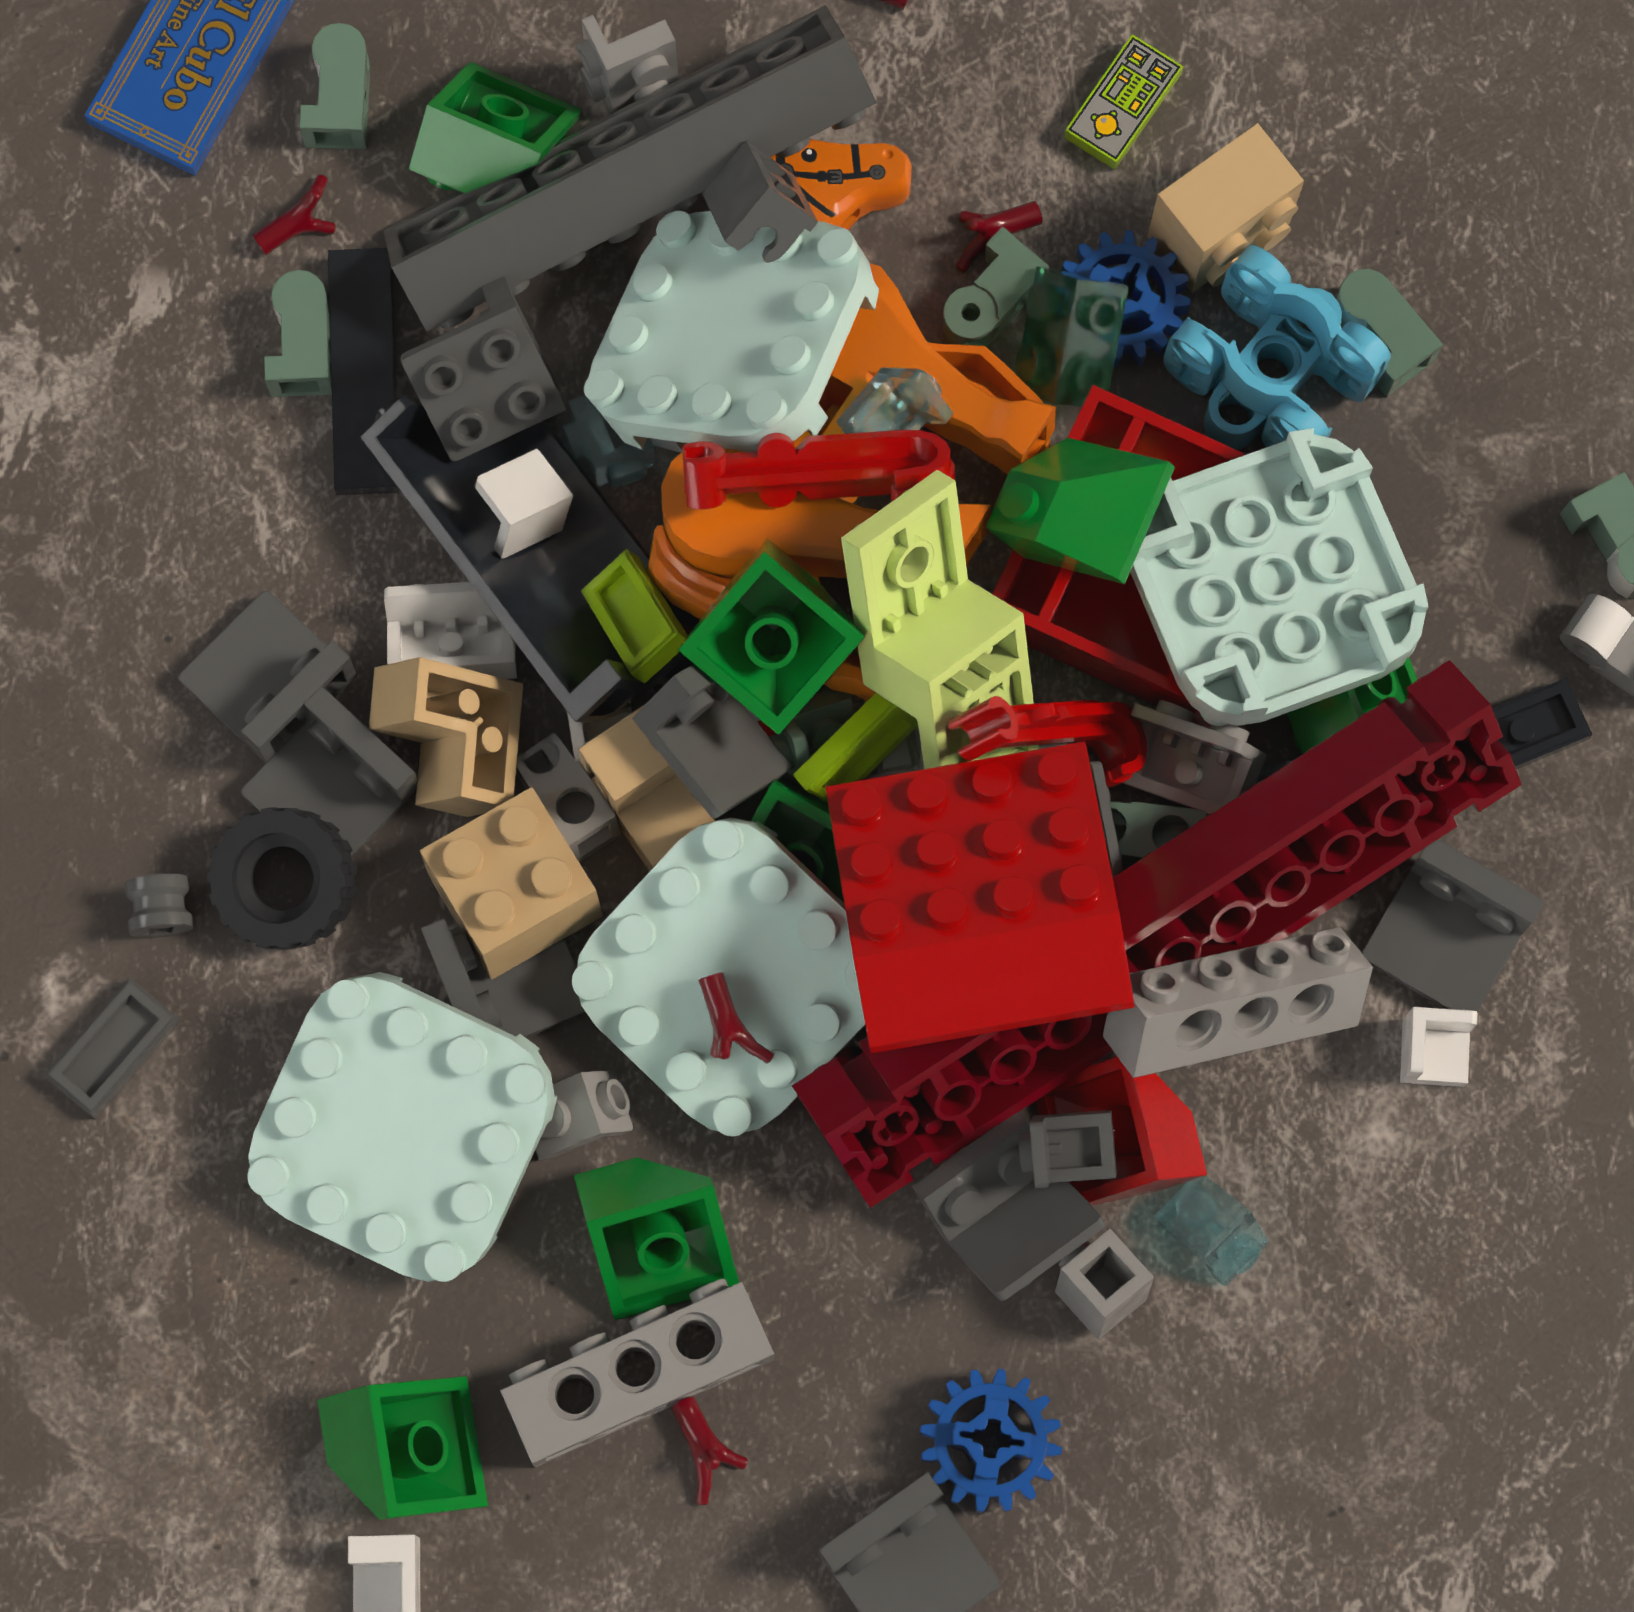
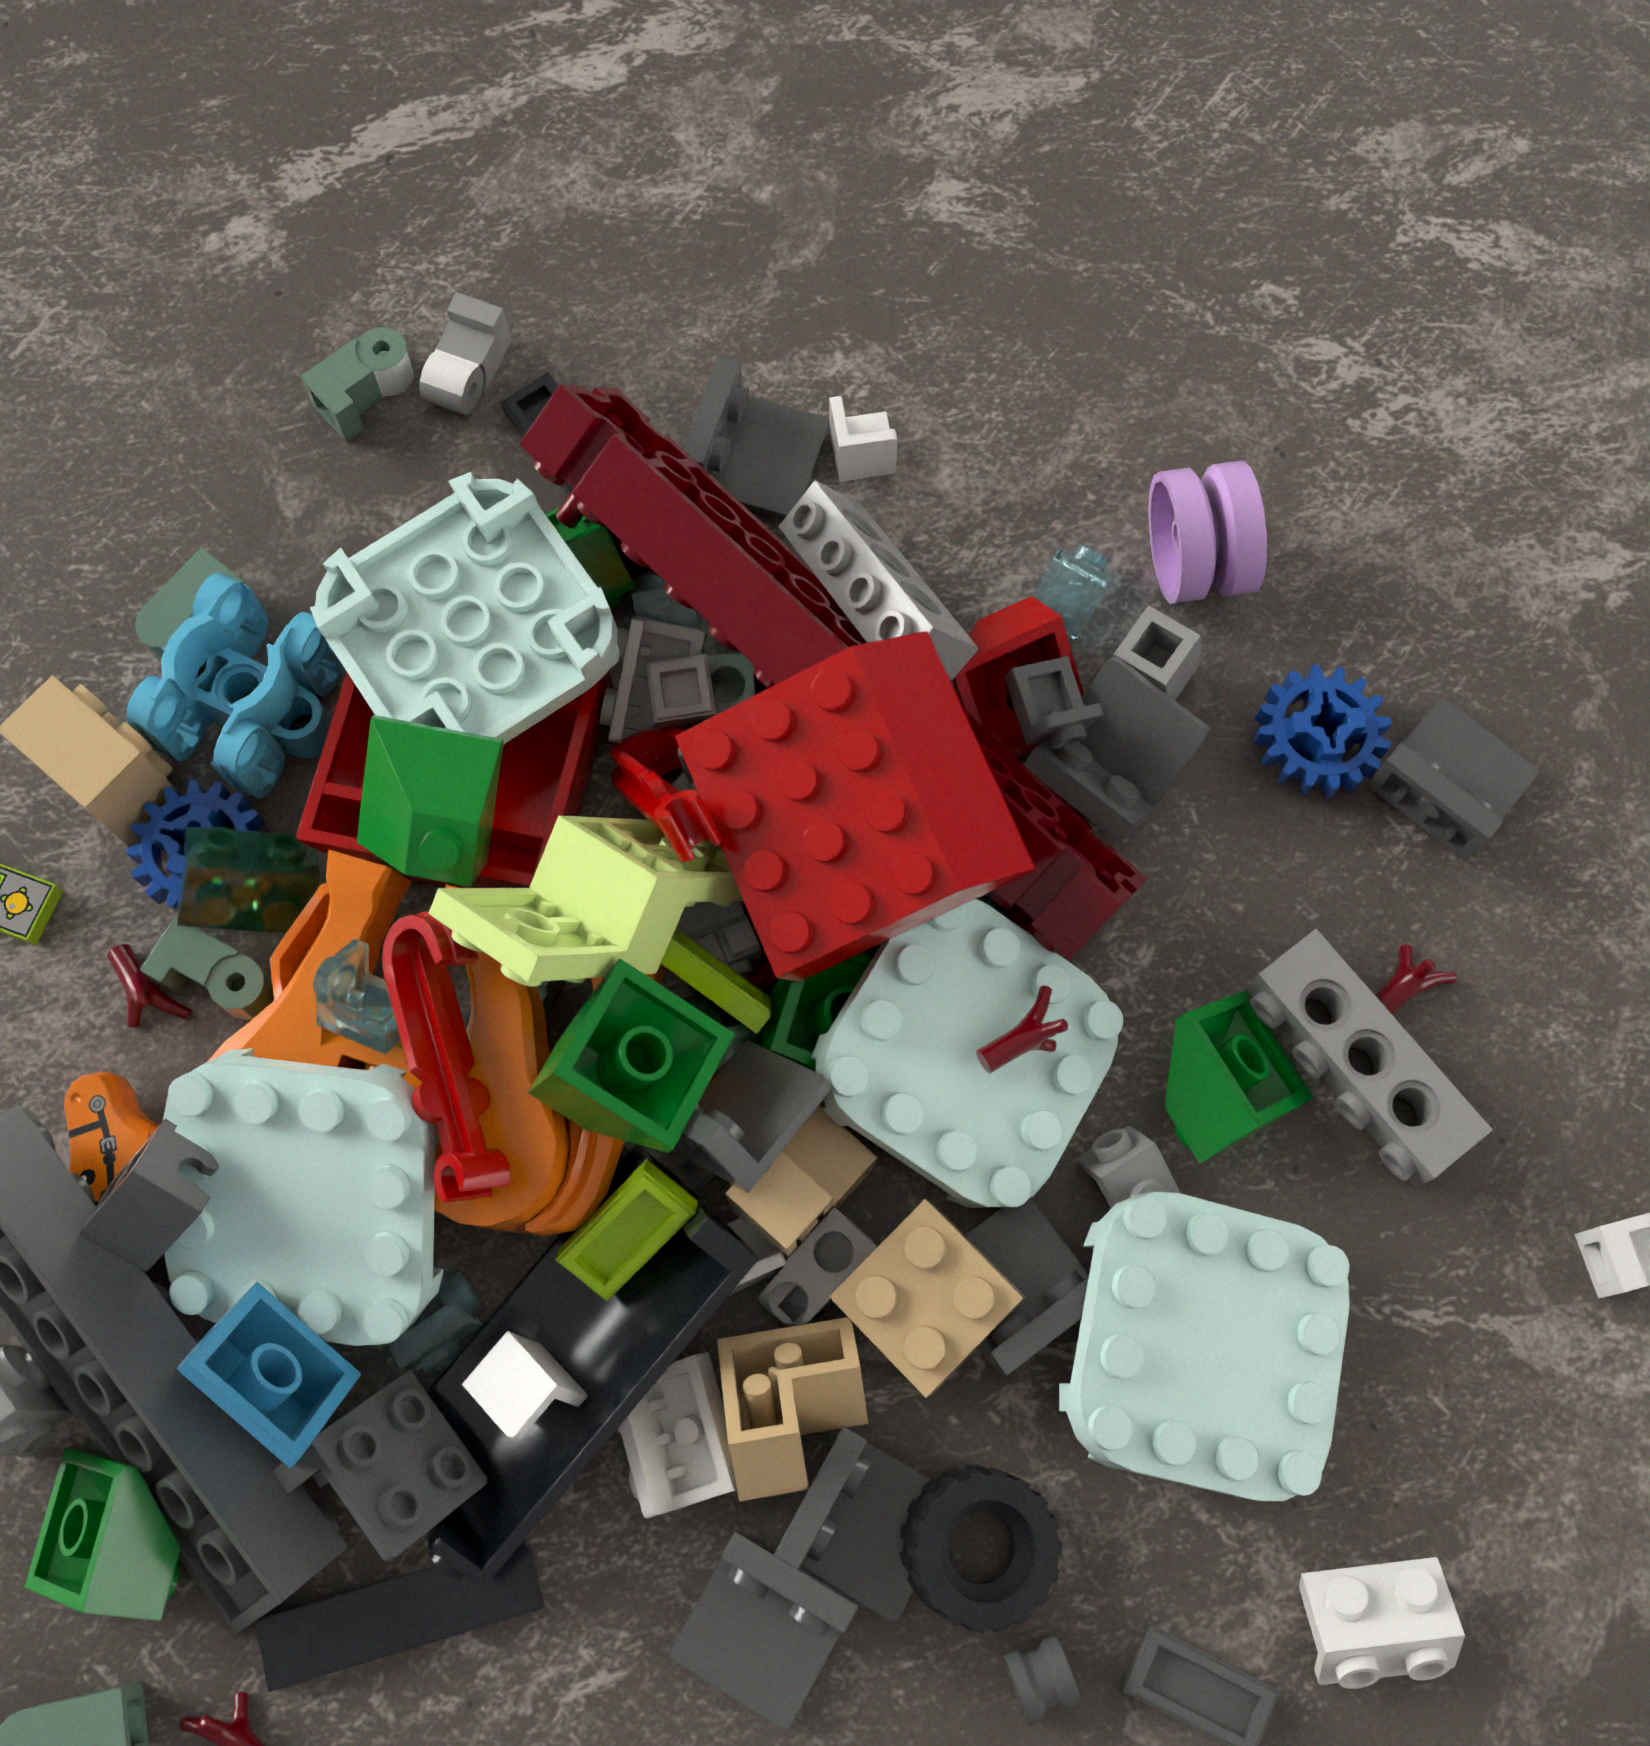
camera: 100 degrees left, 5 degrees down
(124, 1223) = (1382, 1622): none -> white bracket
(305, 337) = (351, 1696): sand green leg -> none
(406, 1446) = (1510, 1265): green slope -> none
(580, 280) = (270, 1373): none -> dark azure slope
(1170, 784) = (681, 691): none -> light grey tile
(1230, 1379) = (1207, 532): none -> lavender wheel

